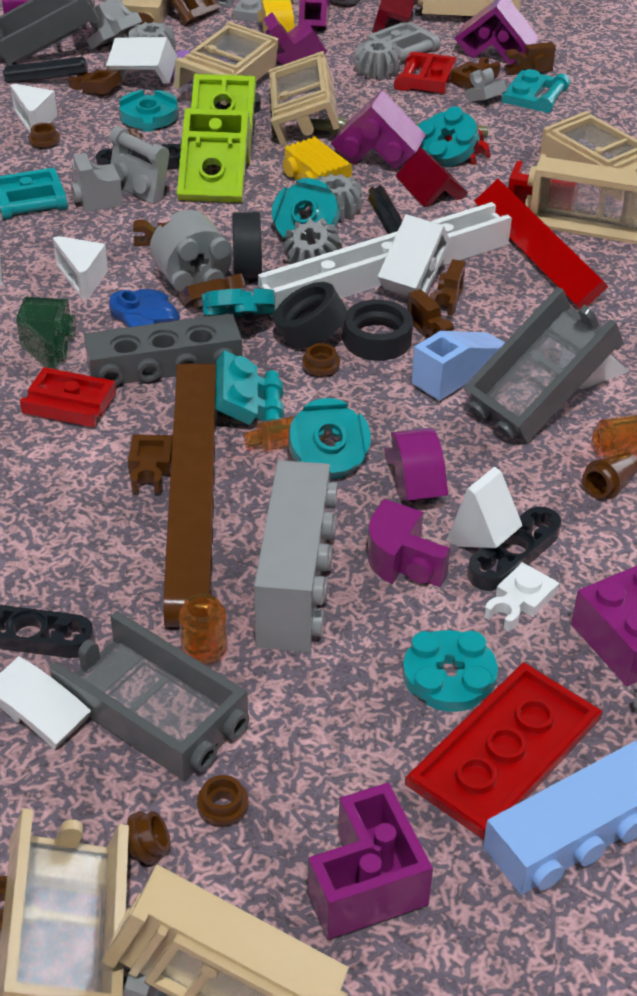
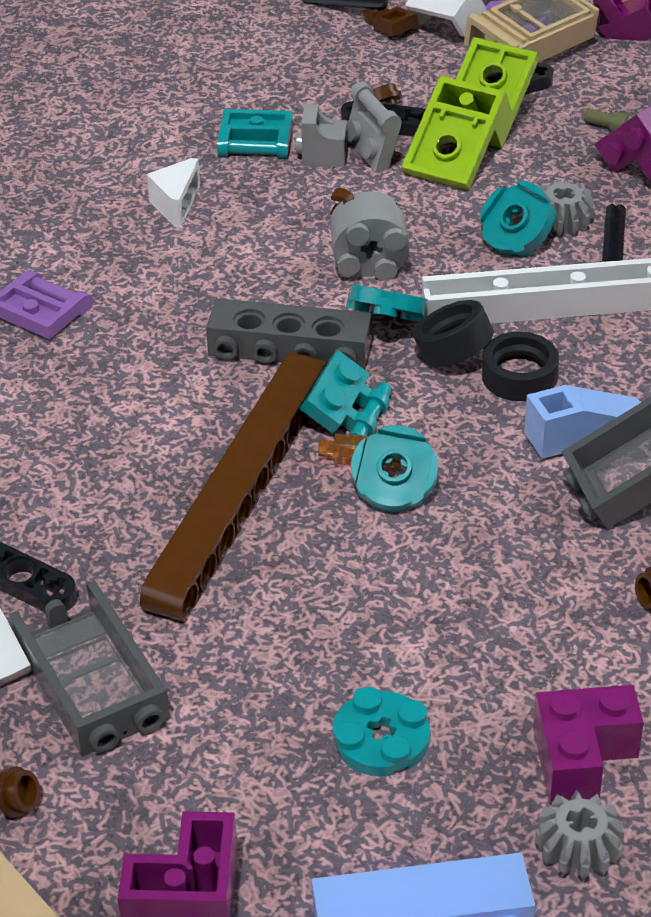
camera: 25 degrees right, 0 degrees up
(33, 104) = (311, 38): white slope -> none
(43, 135) = (304, 71): reddish brown plate -> none
(45, 329) = (190, 283): clear green slope -> none
(68, 397) = (176, 359): red plate -> none
(81, 263) = (265, 223): white slope -> none
(142, 307) = (299, 284): blue plate -> none
(148, 111) = (423, 63): teal plate -> none
(149, 459) = (211, 443): reddish brown plate -> none
(193, 293) = (377, 279): reddish brown plate -> none
(203, 628) = (165, 620): clear orange brick -> none
(222, 788) = (97, 772): reddish brown plate -> none
(247, 244) = (430, 241): black tyre -> none
(294, 556) = (284, 576): light grey brick -> none
(301, 90) = (594, 75): tan door -> none
(310, 240) = (502, 251): light grey gear -> none
(313, 159) = (563, 160): yellow brick -> none
(321, 359) = (443, 384): reddish brown plate -> none
(398, 548) = (400, 597): magenta brick -> none
(414, 256) = (597, 297): white panel -> none
(417, 464) = (465, 519): magenta brick -> none
(426, 314) = (579, 361): reddish brown plate -> none
(450, 286) = (626, 339): reddish brown plate -> none
(485, 514) = (497, 587): white slope -> none
(503, 748) = (391, 819): red tile -> none
(507, 562) = (530, 618): black beam -> none
(521, 591) = (500, 679): white plate -> none

